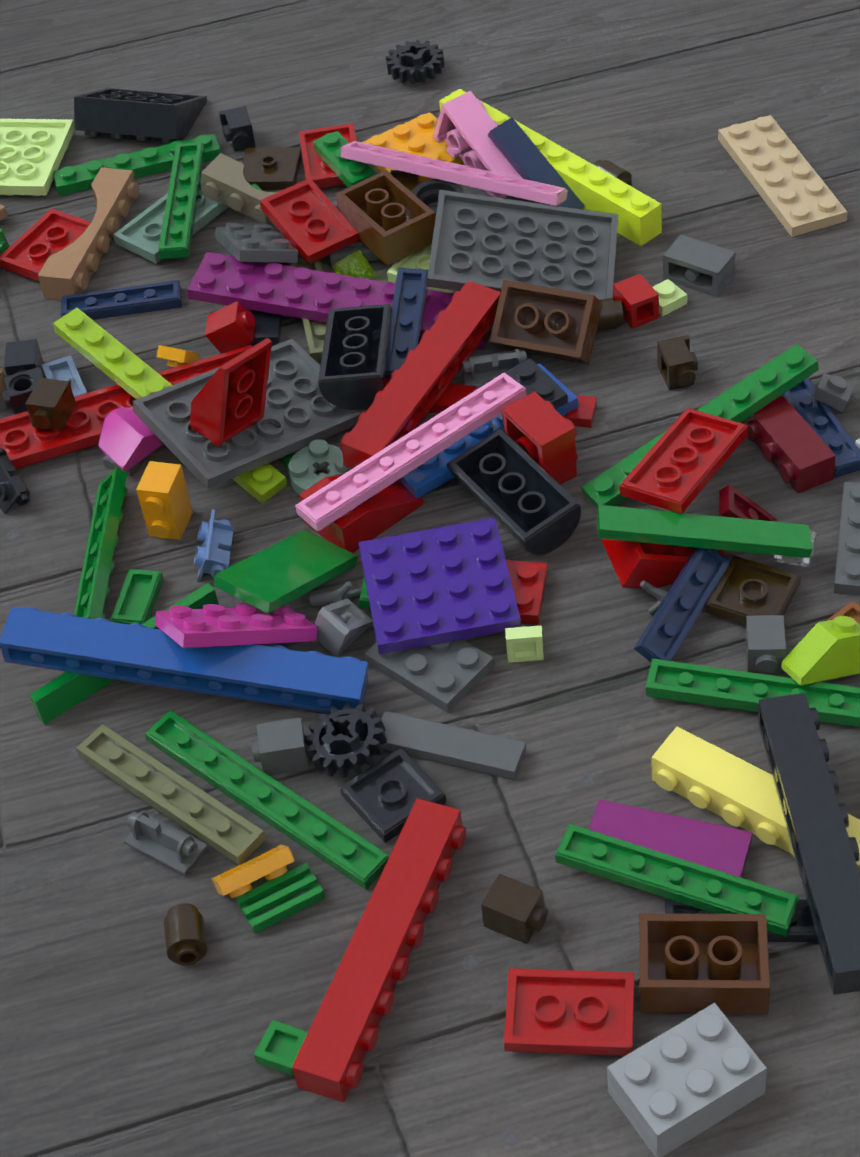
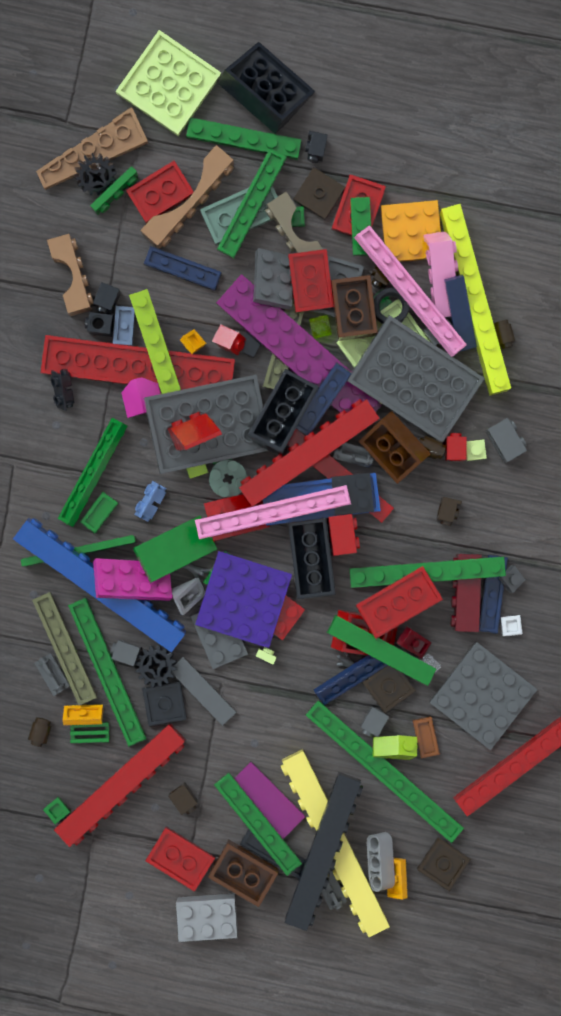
camera: 20 degrees right, 40 degrees up
(50, 404) = (105, 353): dark brown brick -> none
(164, 500) = (135, 464): light orange brick -> none
(415, 61) = (462, 143): black gear -> none

